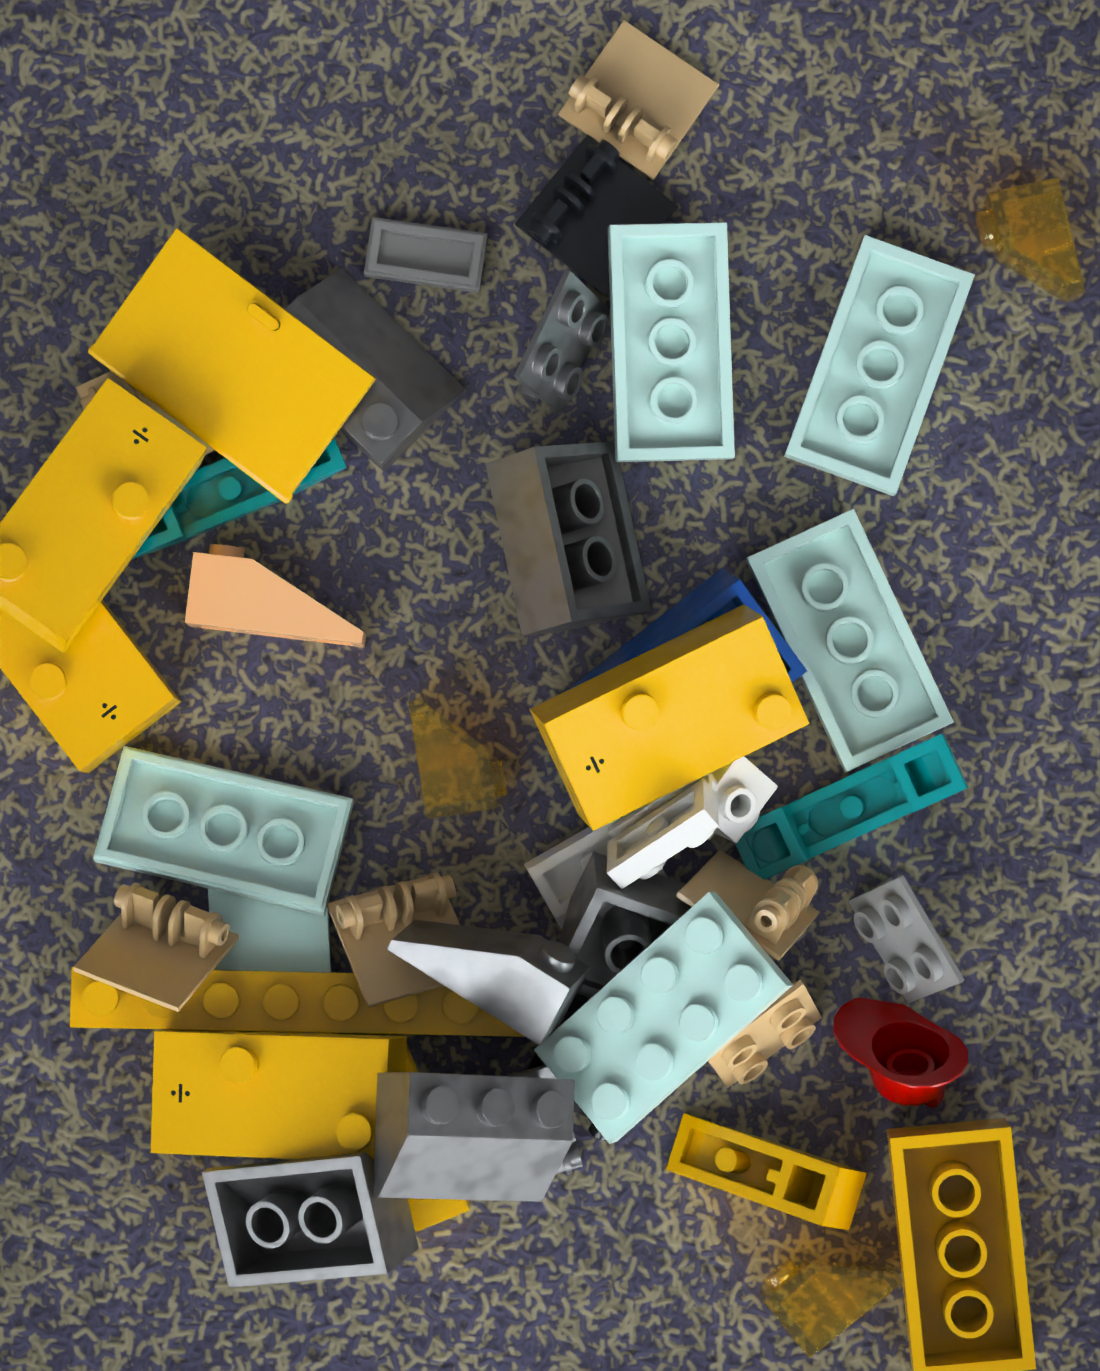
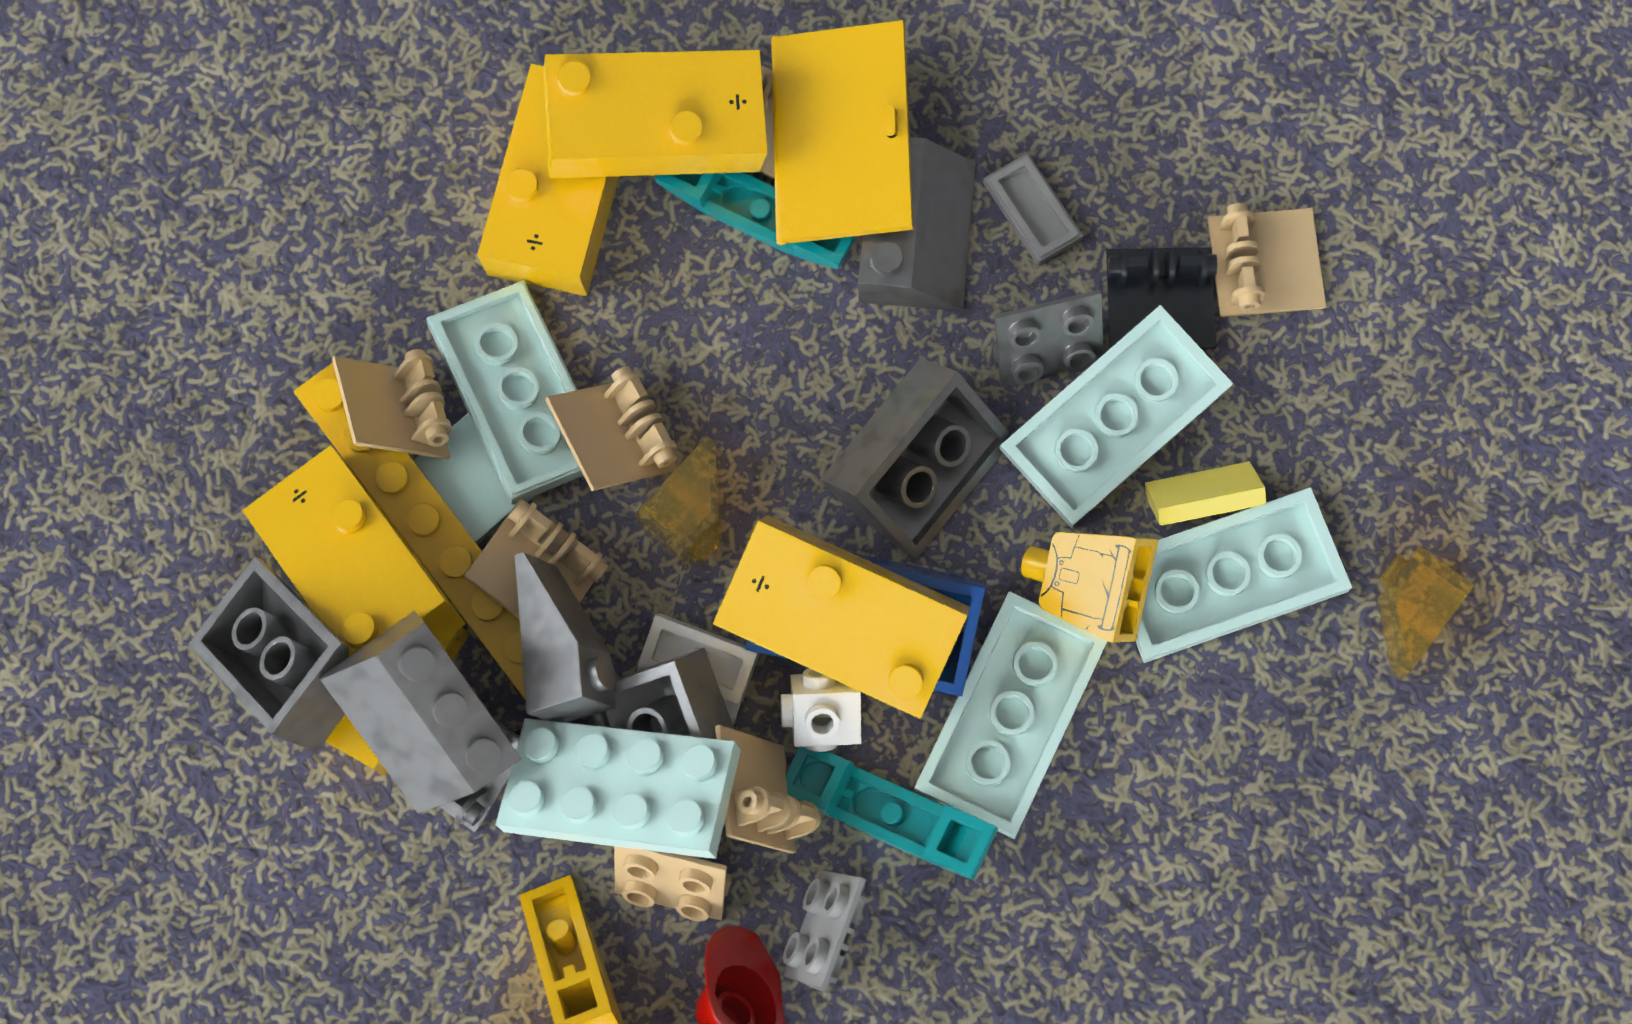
camera: 60 degrees right, 10 degrees down
(250, 599) = (691, 274): light nougat slope -> none
(334, 777) = (614, 431): none -> tan hinge
(661, 830) = (770, 680): white plate -> none
(796, 324) = (1205, 493): none -> light yellow tile
(799, 481) = (1094, 581): none -> yellow torso

